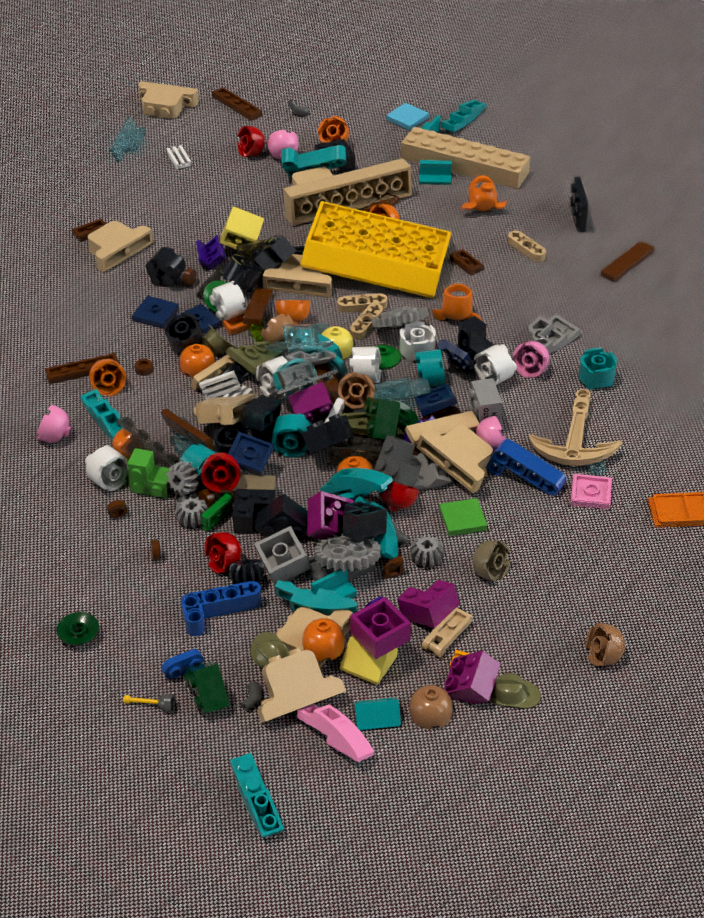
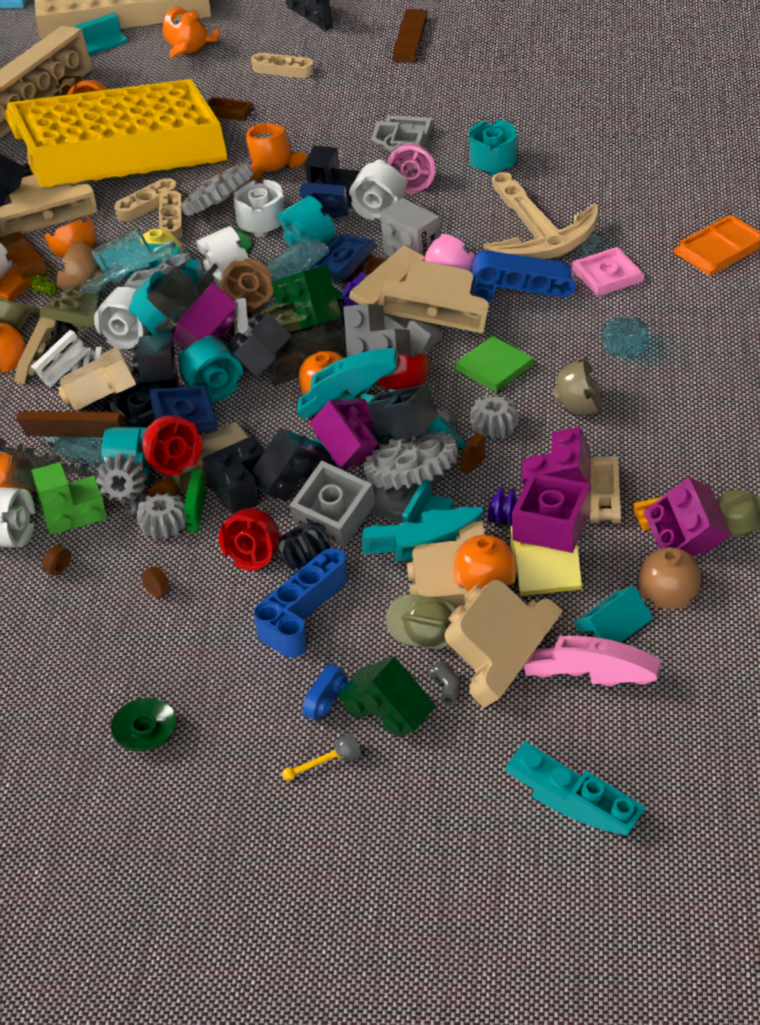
camera: 30 degrees left, 0 degrees up
(554, 540) = (625, 336): none -> clear light blue gear

